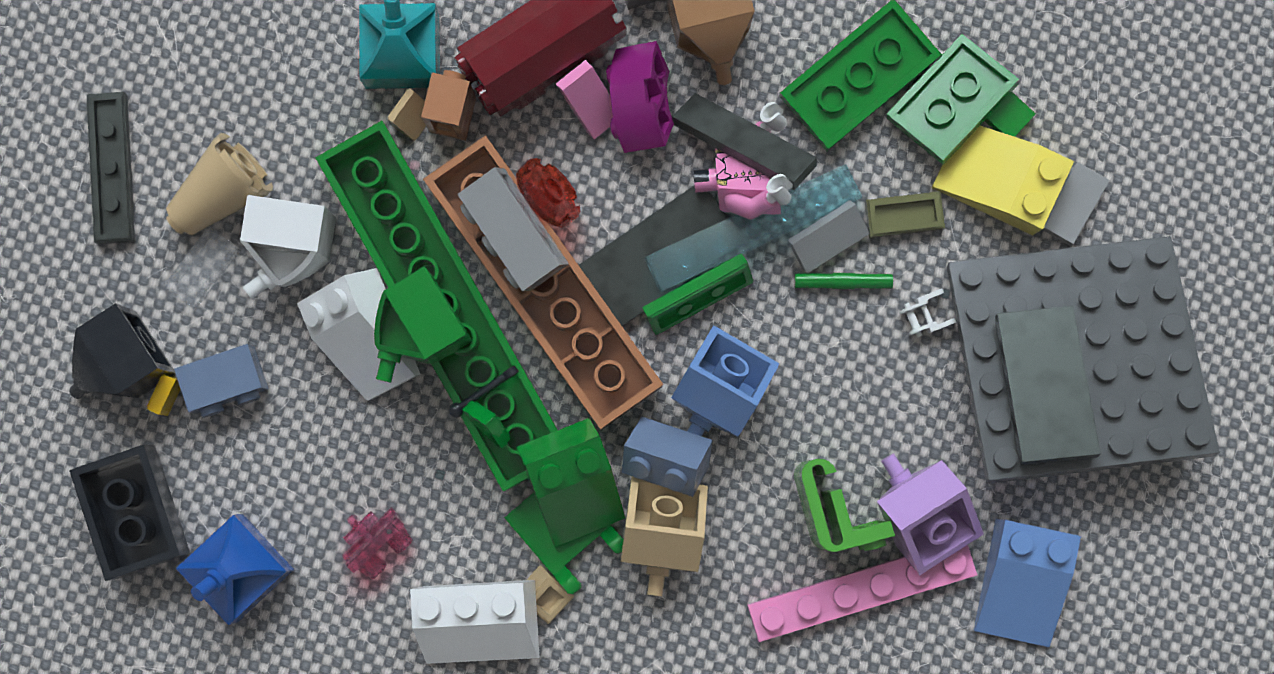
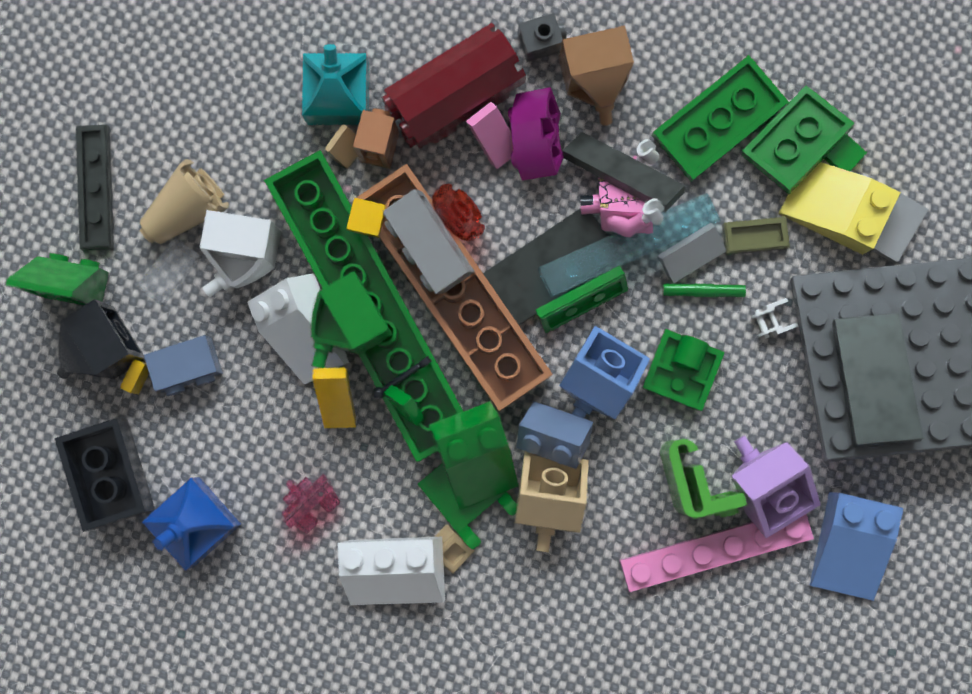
camera: 10 degrees right, 0 degrees up
(74, 280) = (61, 280): none -> green slope
(403, 416) = (334, 397): none -> yellow tile
(438, 201) = (366, 217): none -> yellow tile
(819, 376) = (683, 369): none -> green plate

